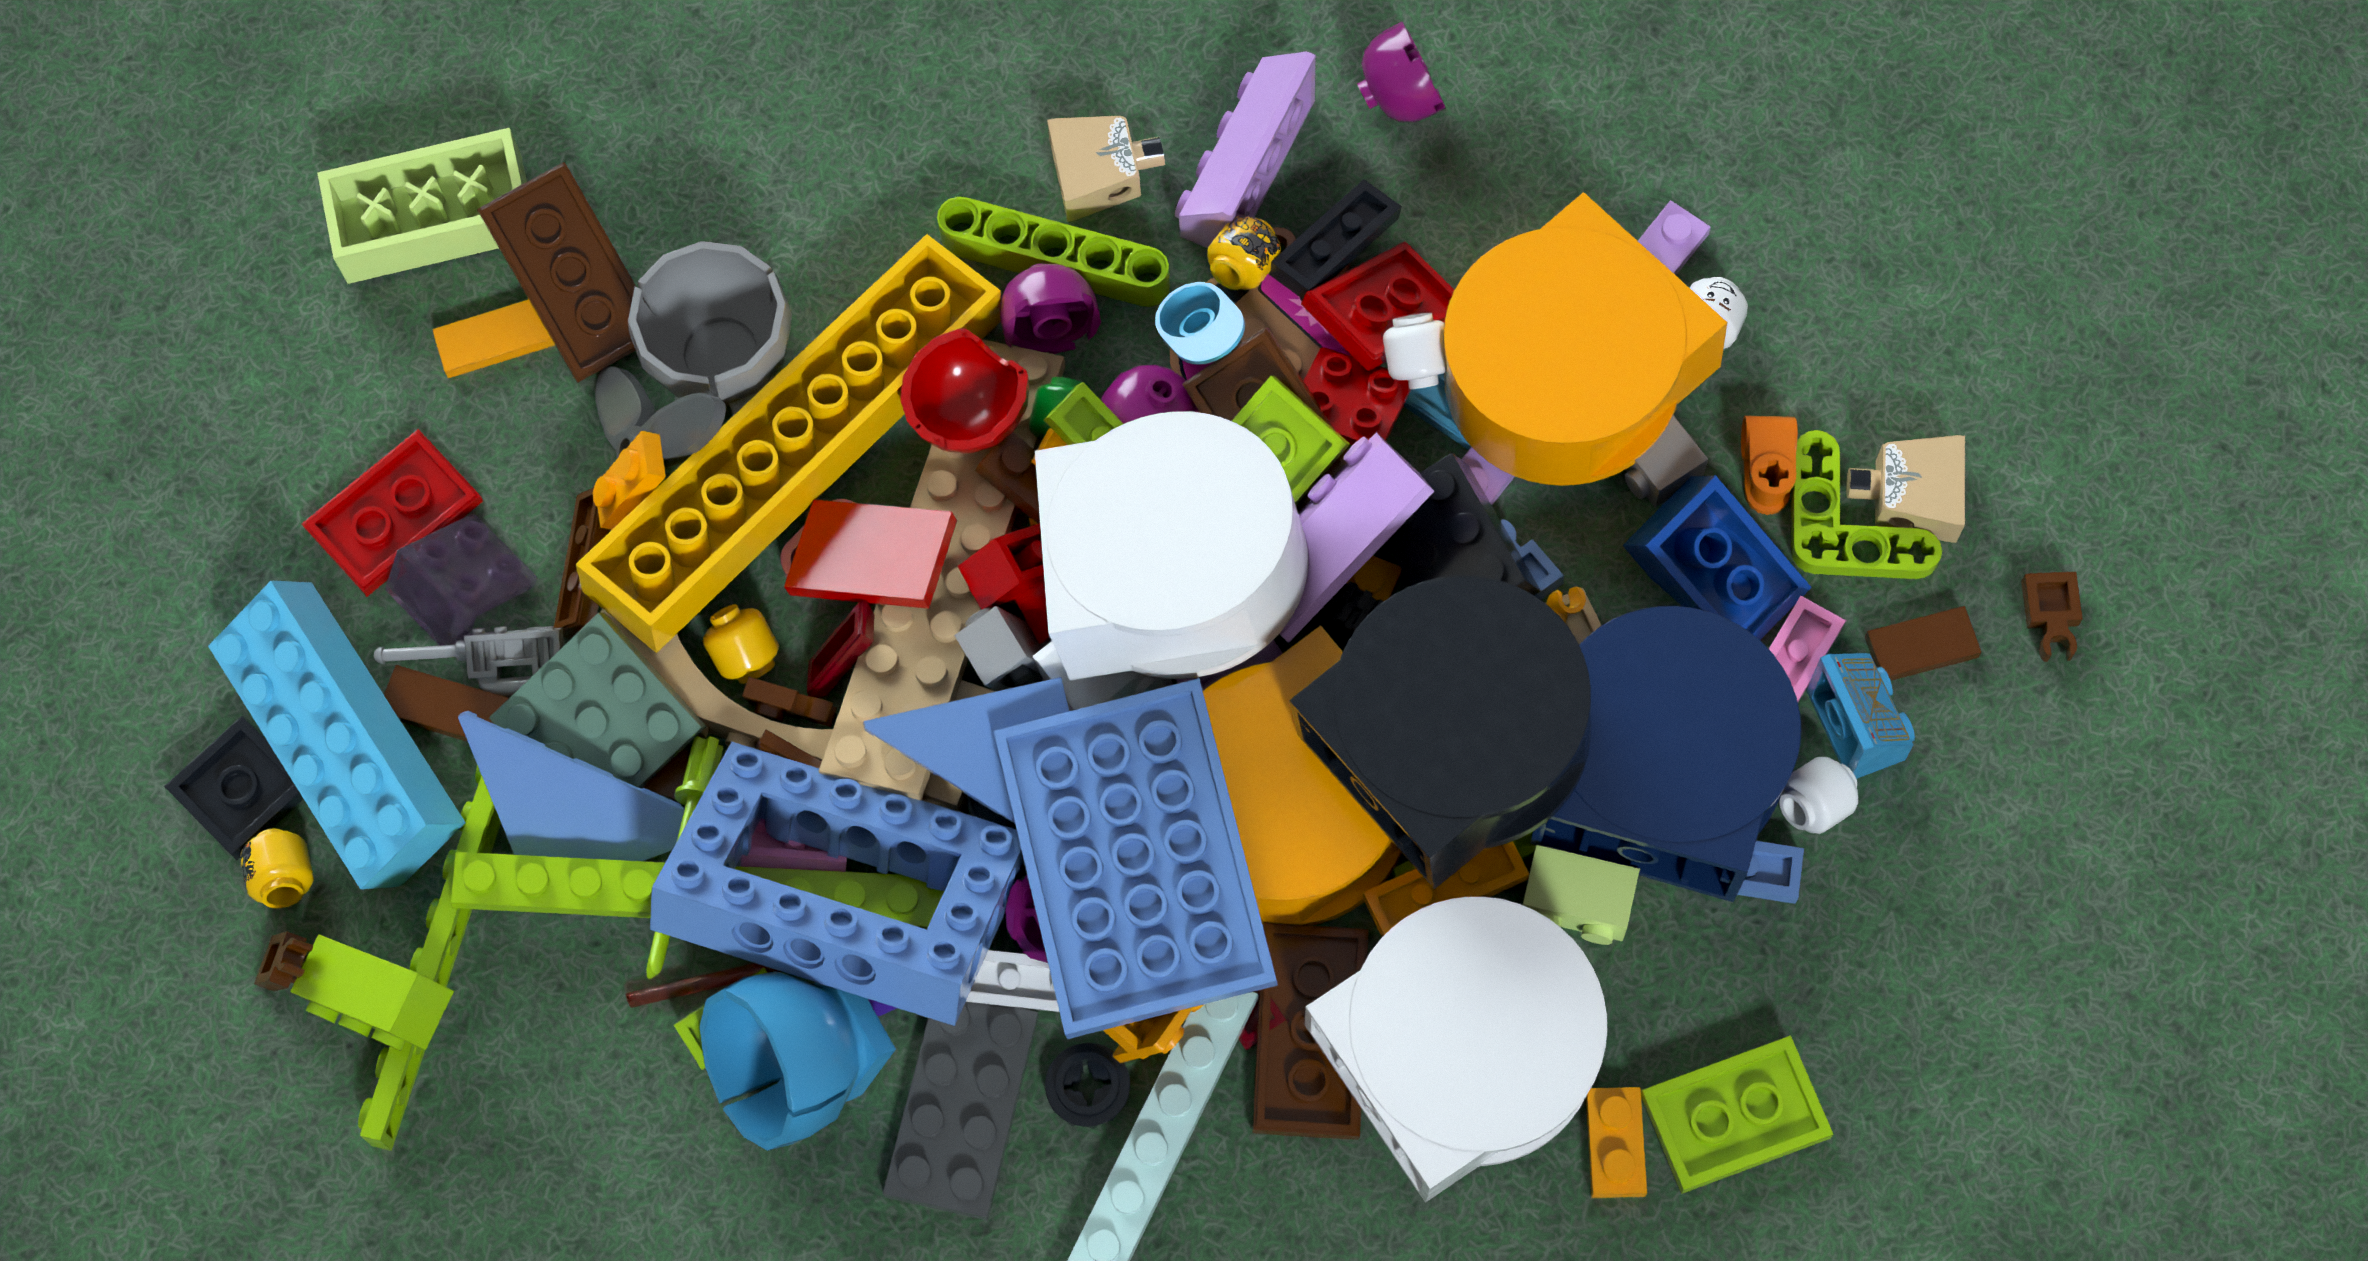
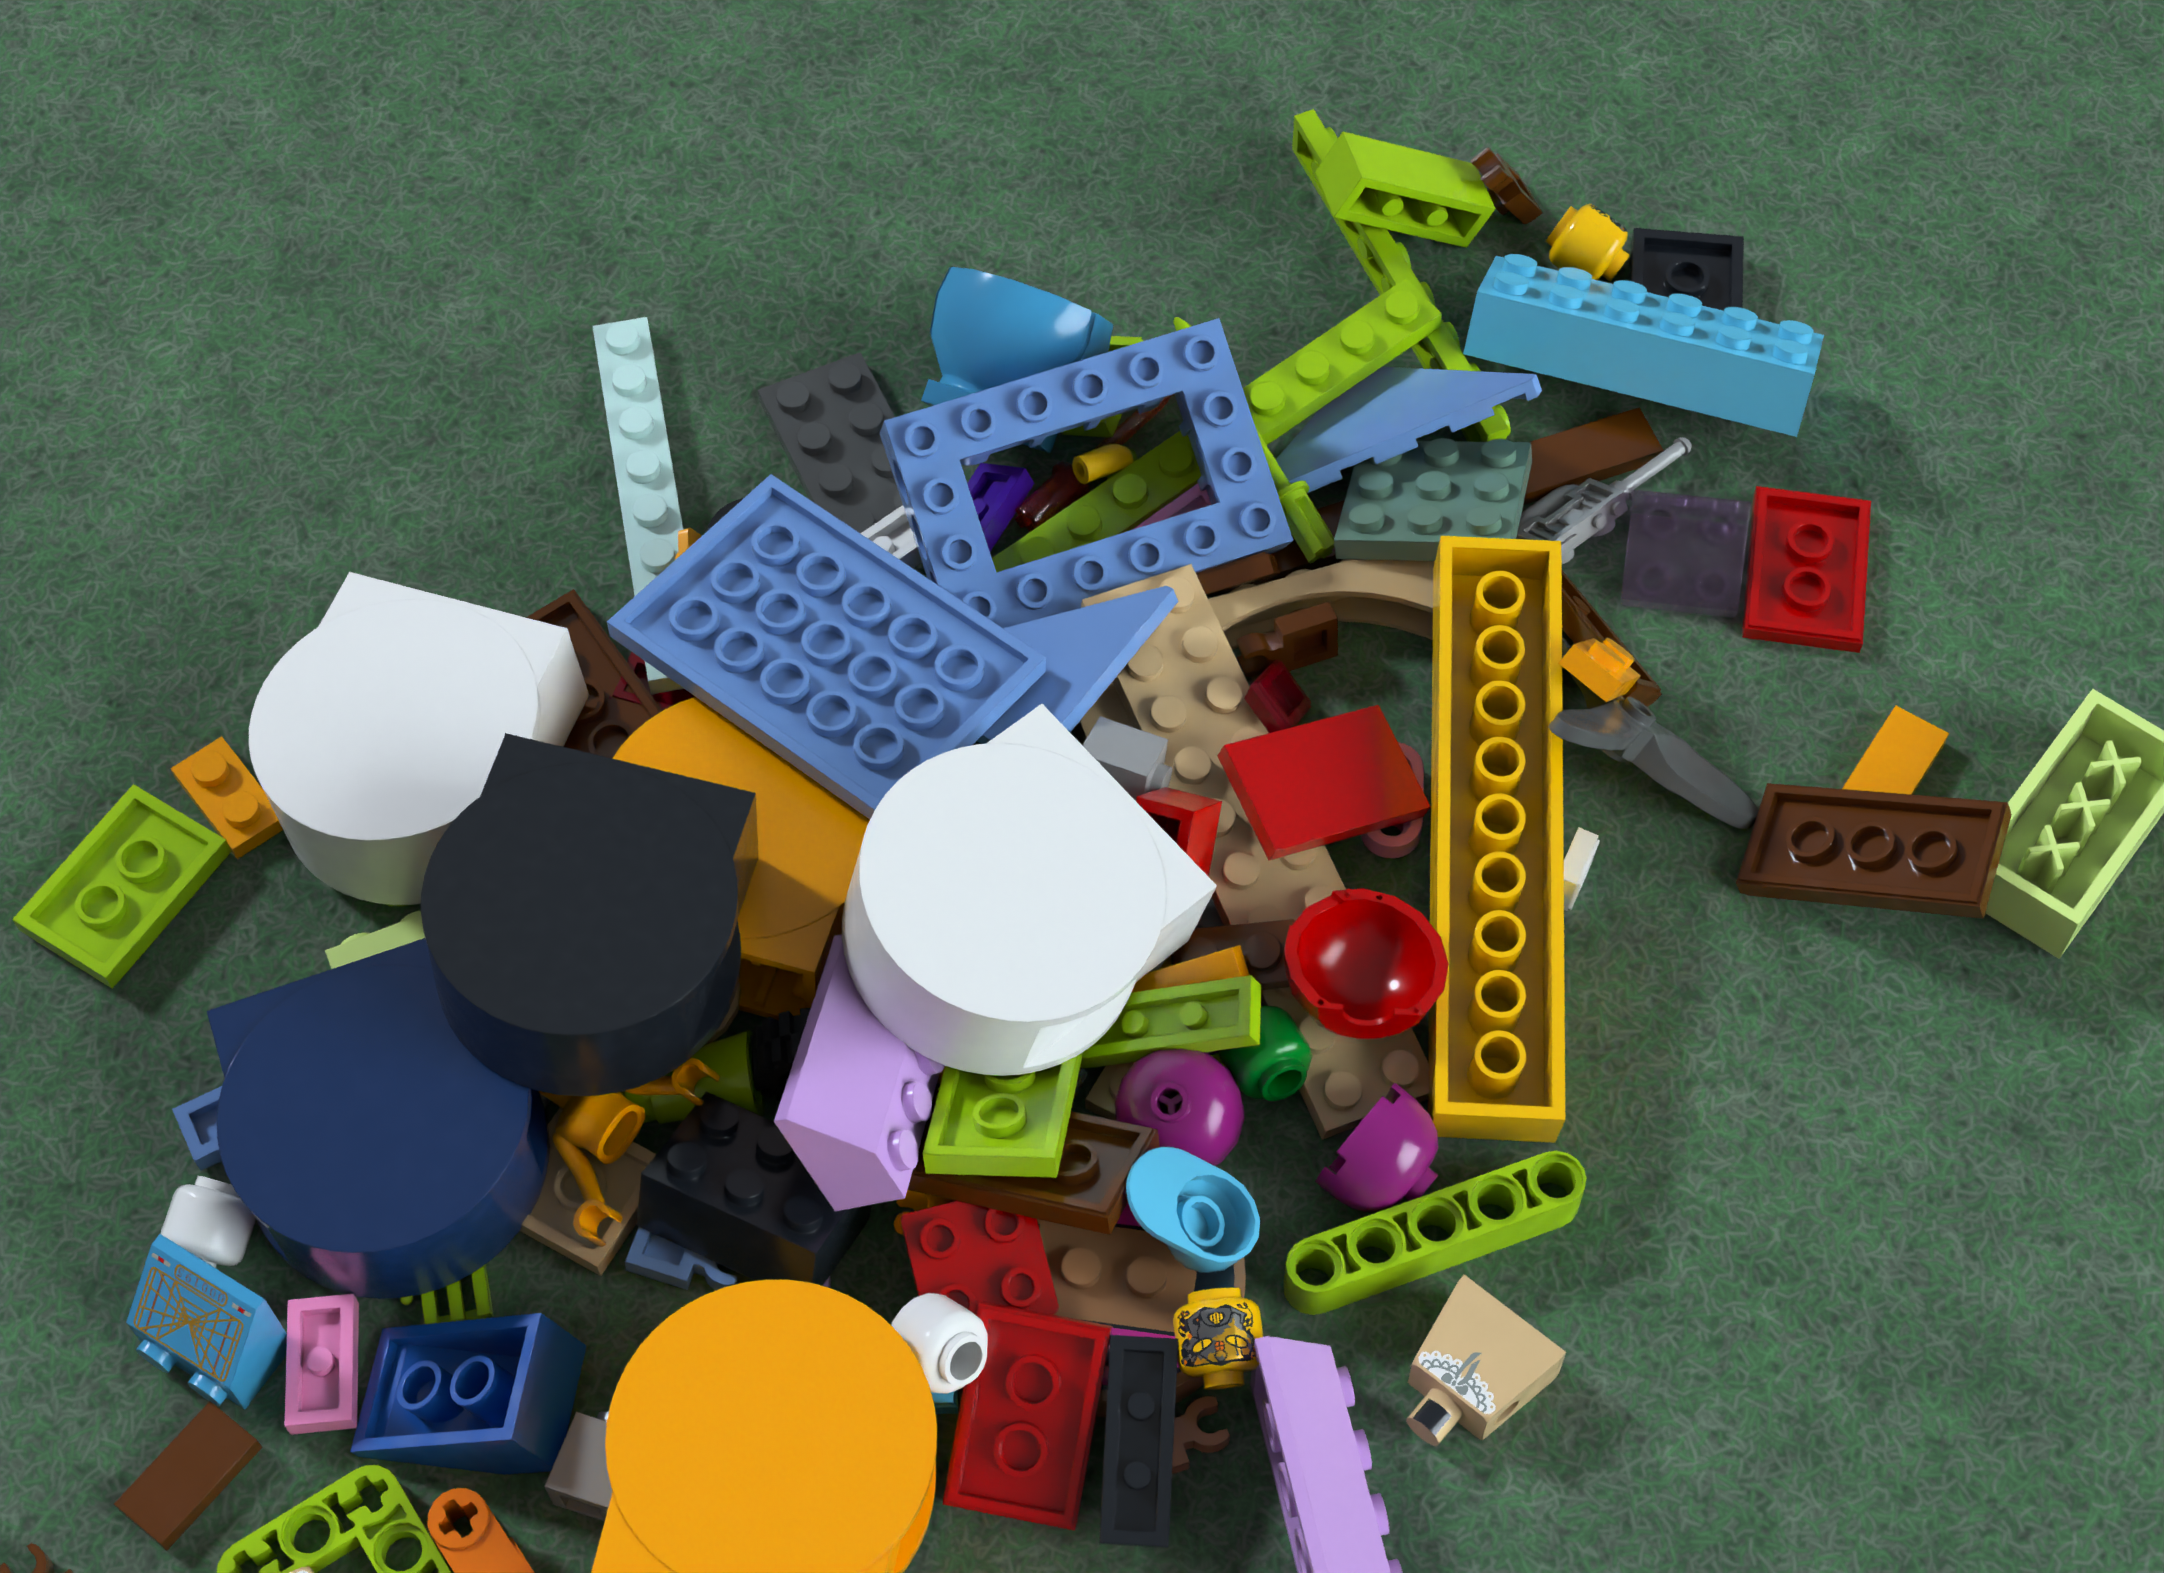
camera: 140 degrees right, 10 degrees down
(710, 321) = (1674, 862): light grey plate -> none
(740, 643) = (1377, 652): yellow head -> none

